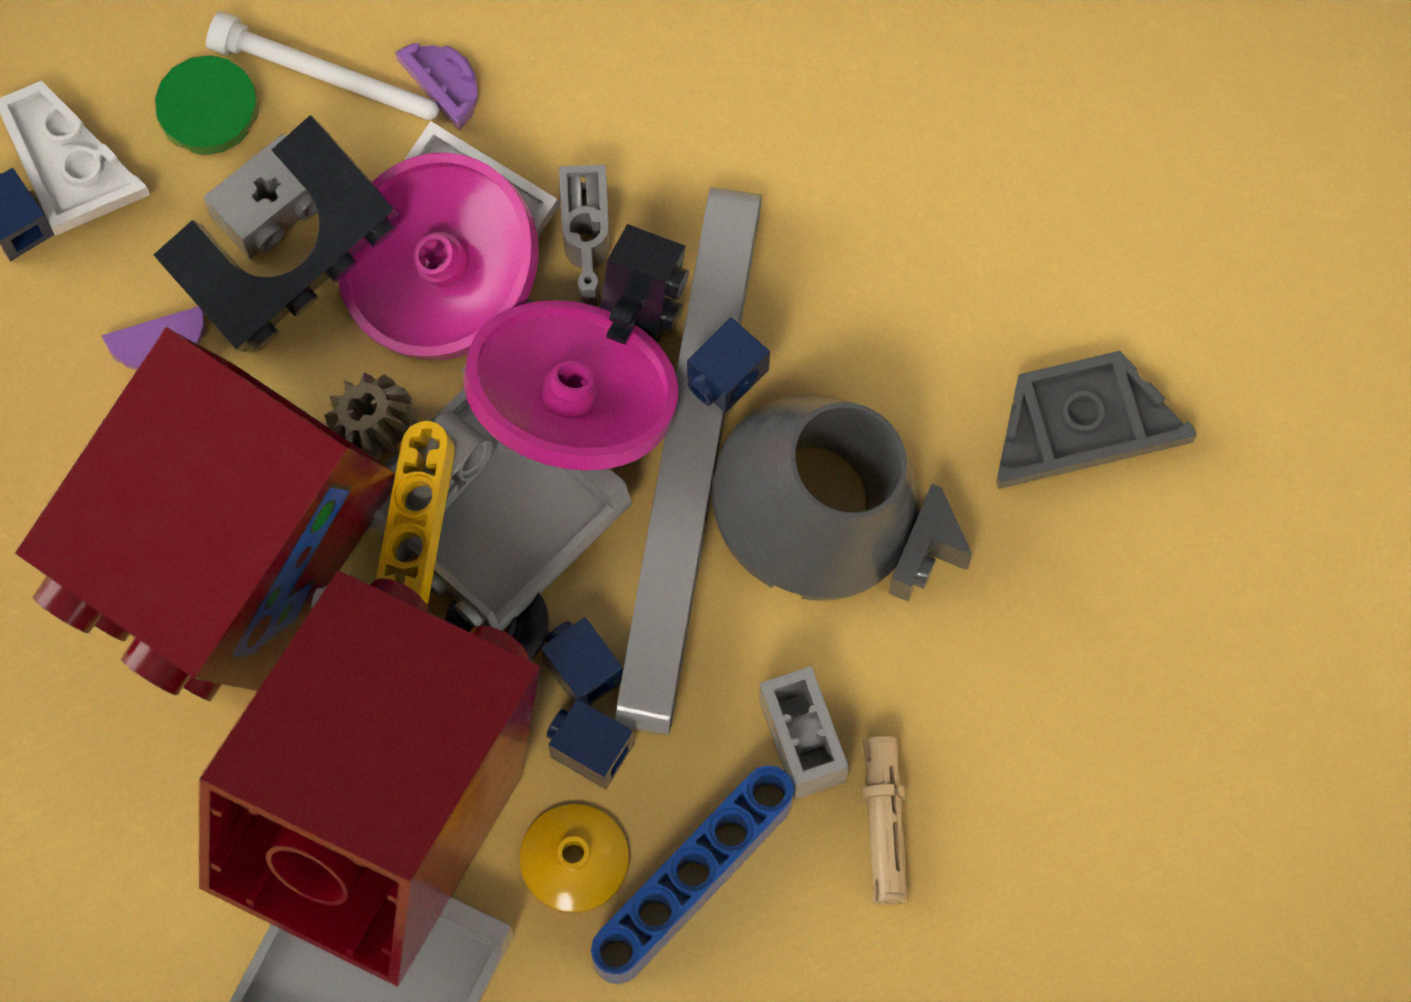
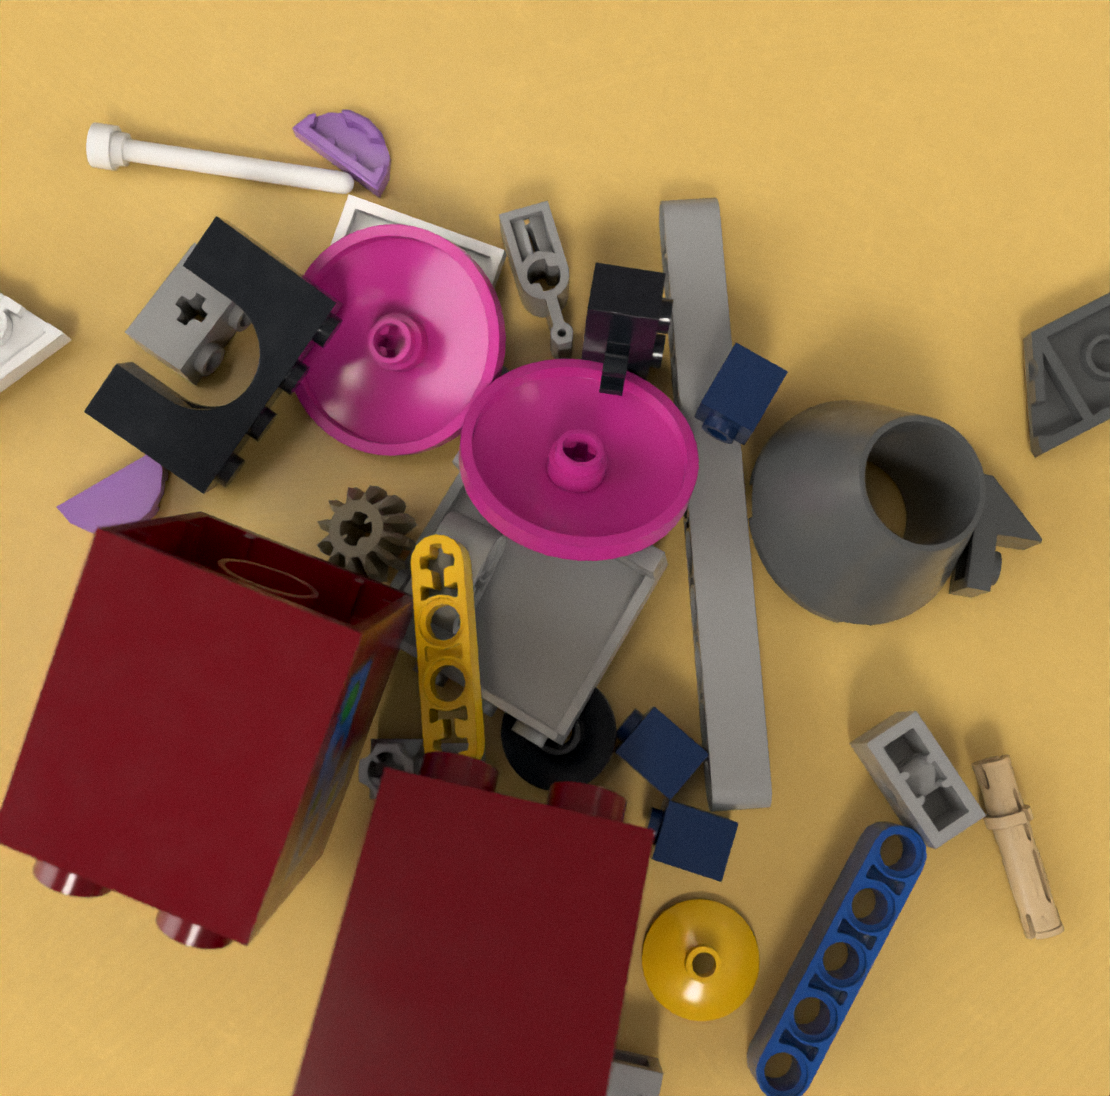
camera: 15 degrees left, 10 degrees up
(206, 104) = (106, 228): green tile -> none

